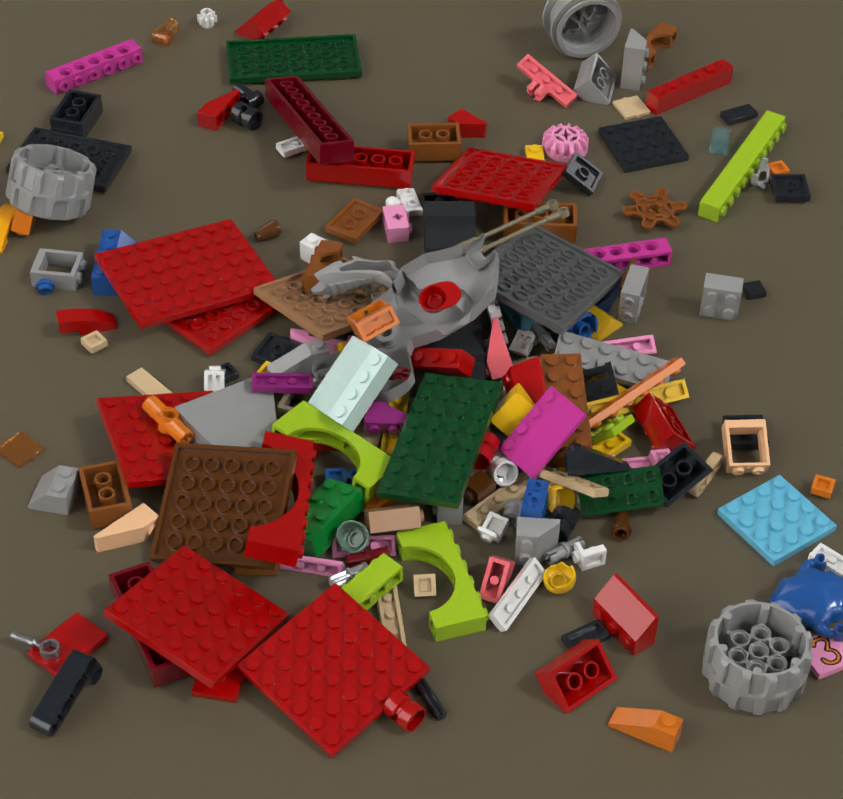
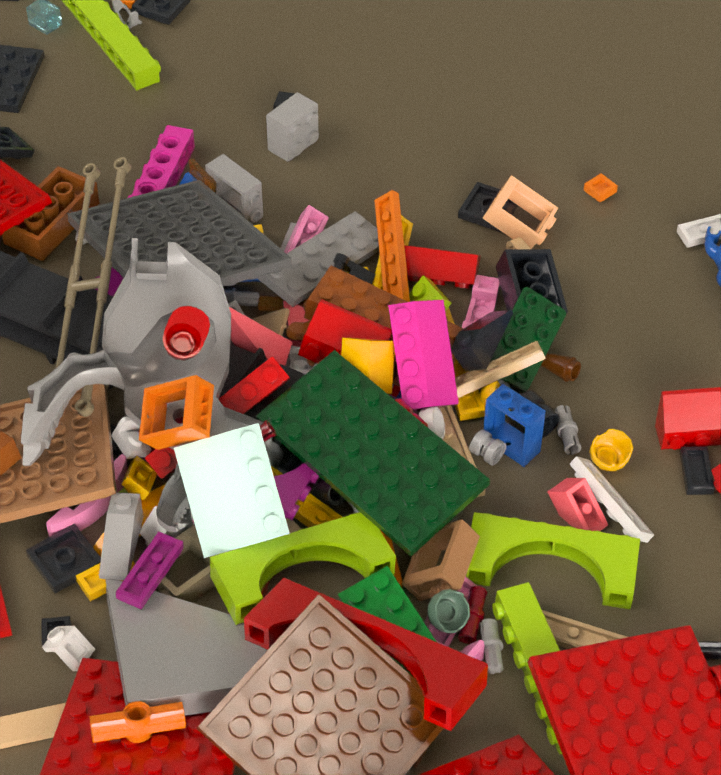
camera: 60 degrees left, 5 degrees up
(340, 474) = (331, 582): blue plate -> none
(424, 584) = (550, 578): tan plate -> none
(493, 528) = (500, 475): white bracket -> none
(535, 538) = (550, 447): light grey slope -> none
(589, 557) = (589, 417): white bracket -> none
(644, 209) = (99, 107): dark orange plate -> none
(776, 520) = (620, 244): medium azure plate -> none

